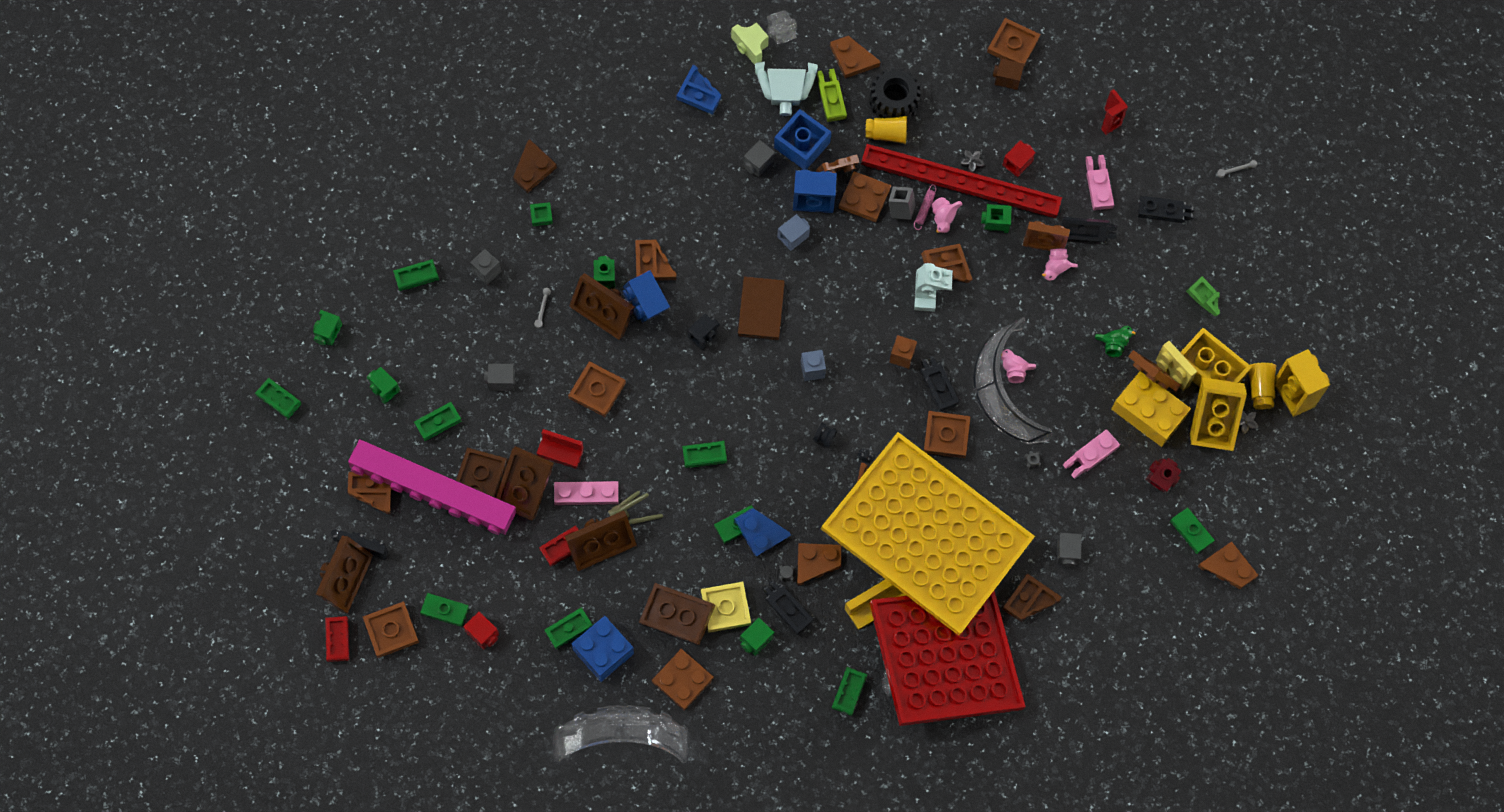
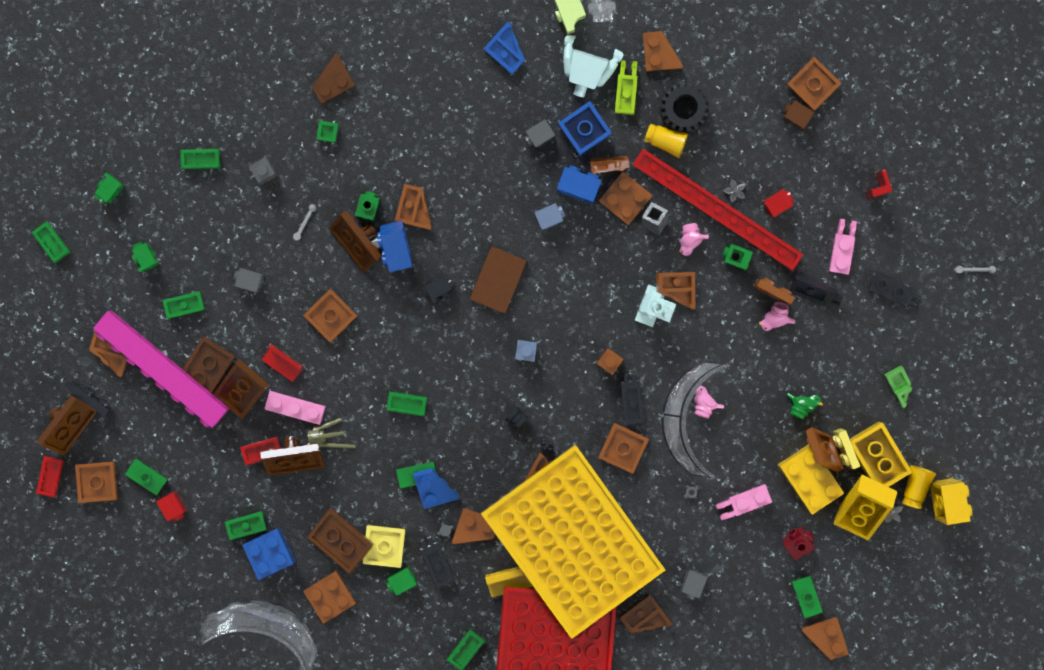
camera: 15 degrees right, 20 degrees up
(920, 219) = (676, 225): bright pink piece -> none

